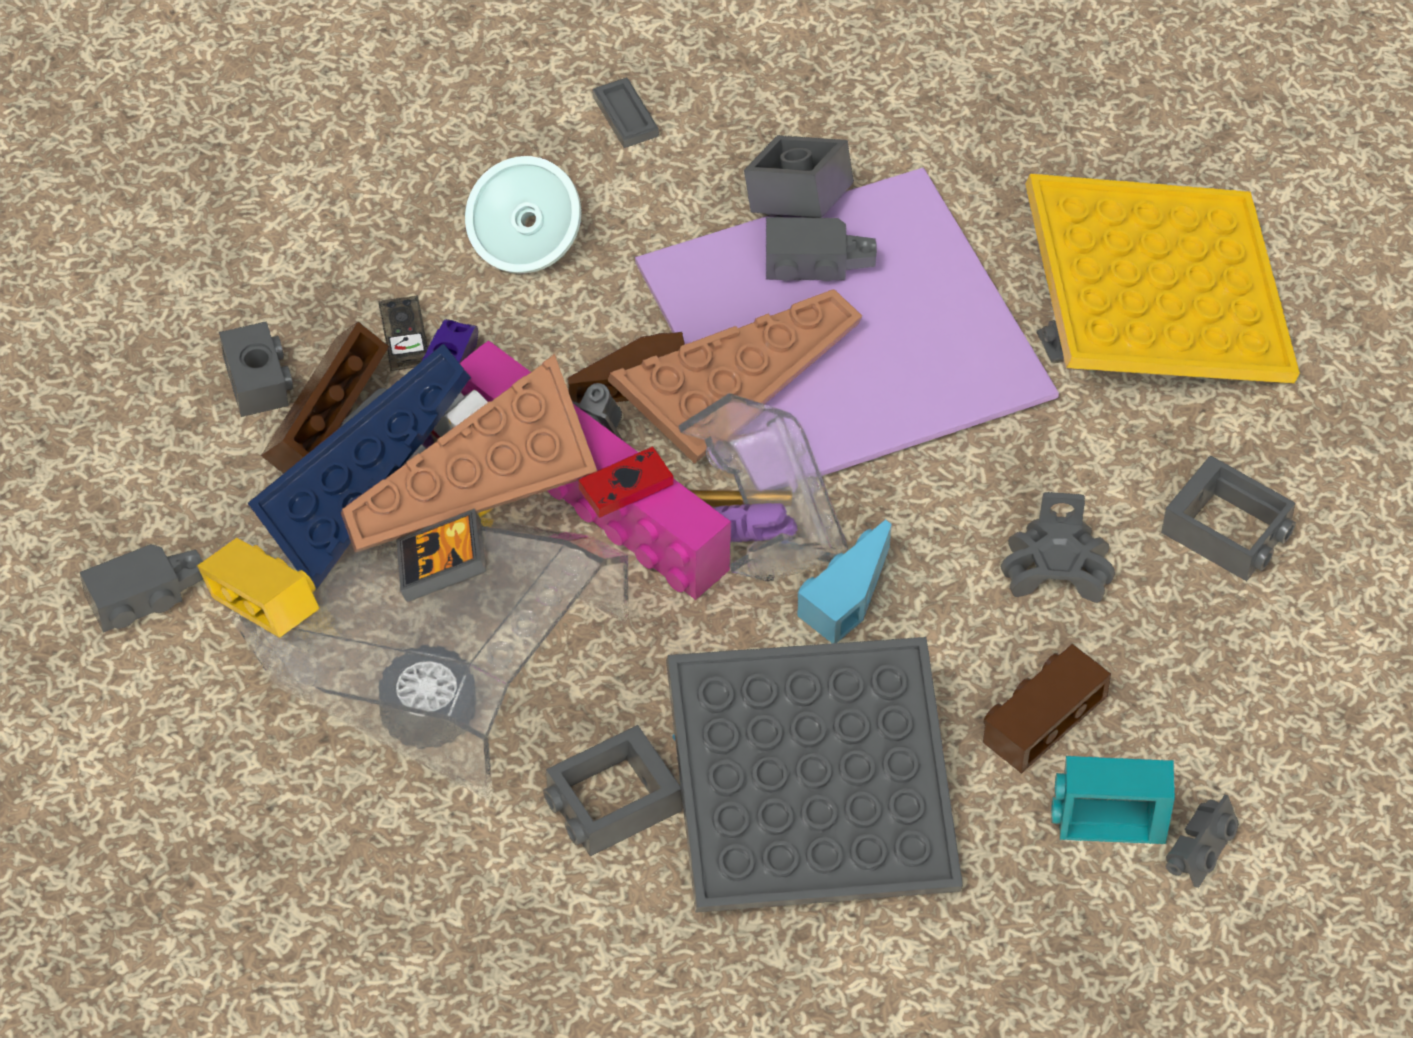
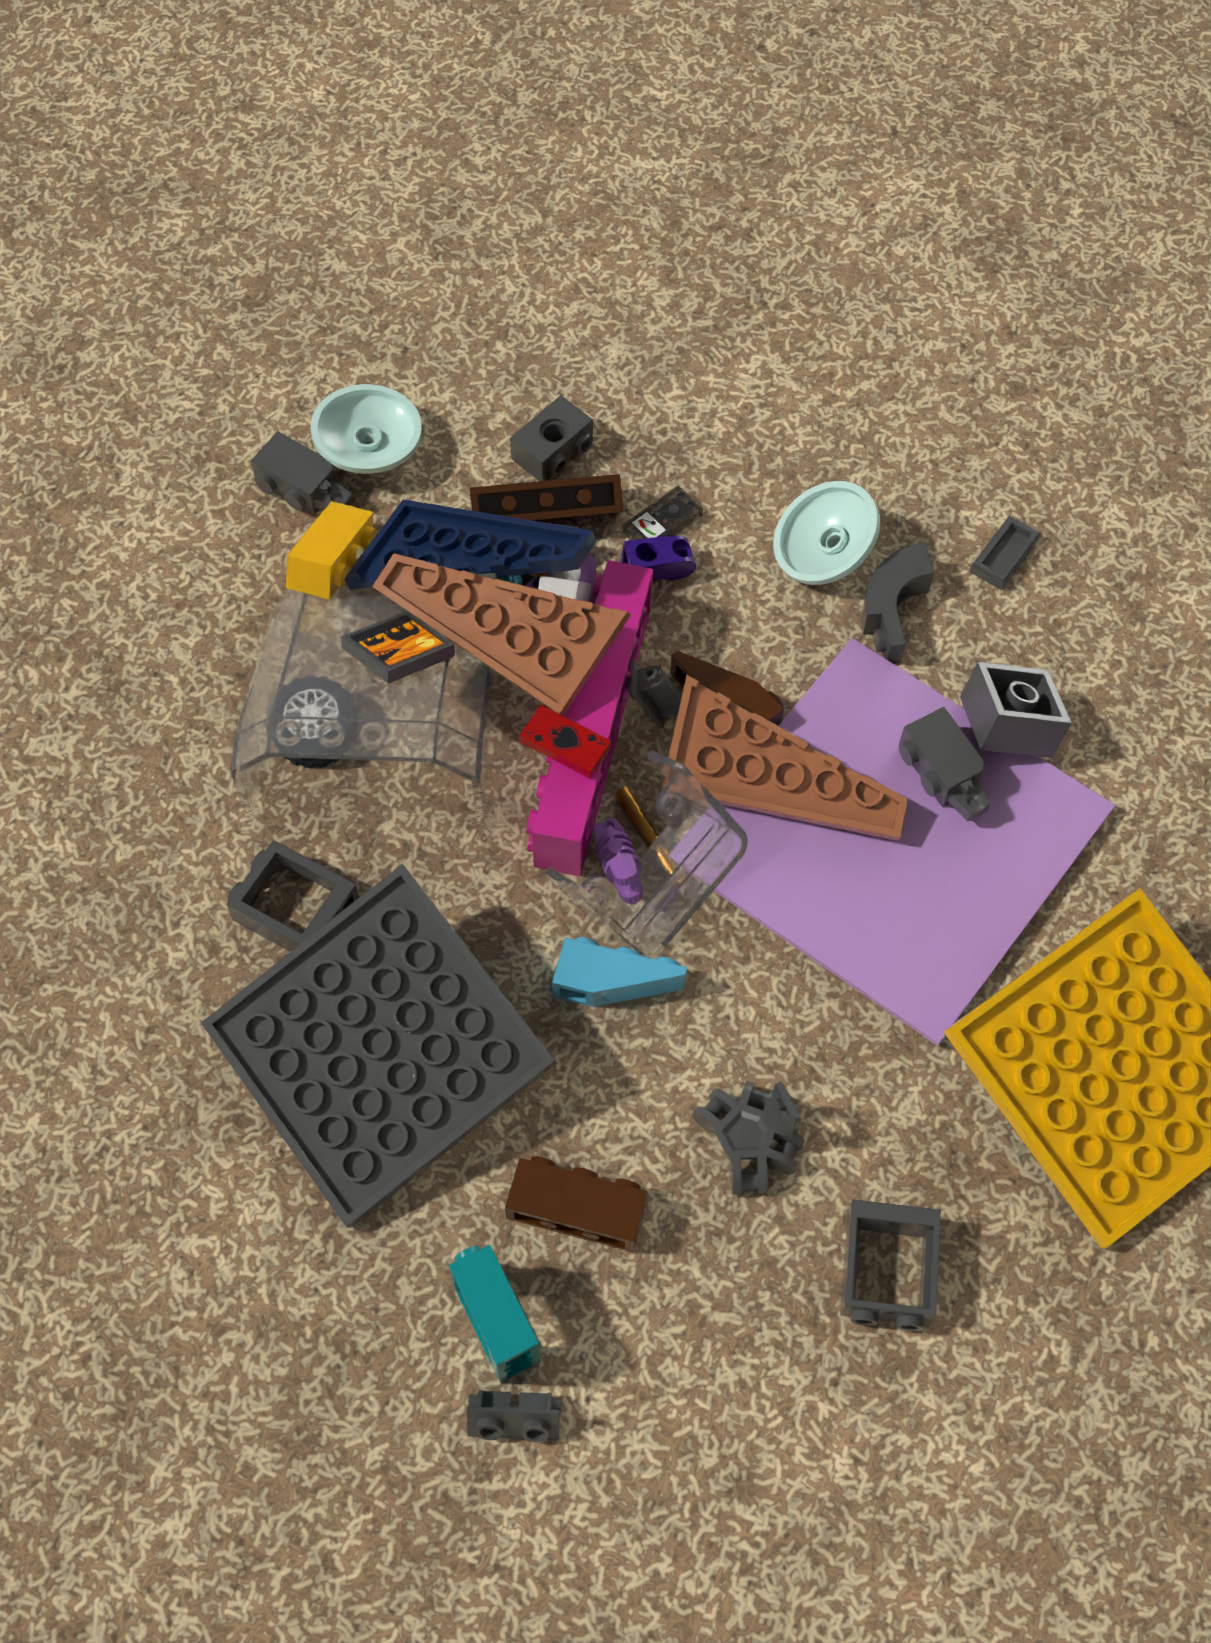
camera: 60 degrees right, 10 degrees up
(132, 501) = (366, 428): none -> light aqua dish
(618, 217) = (895, 580): none -> dark grey arch

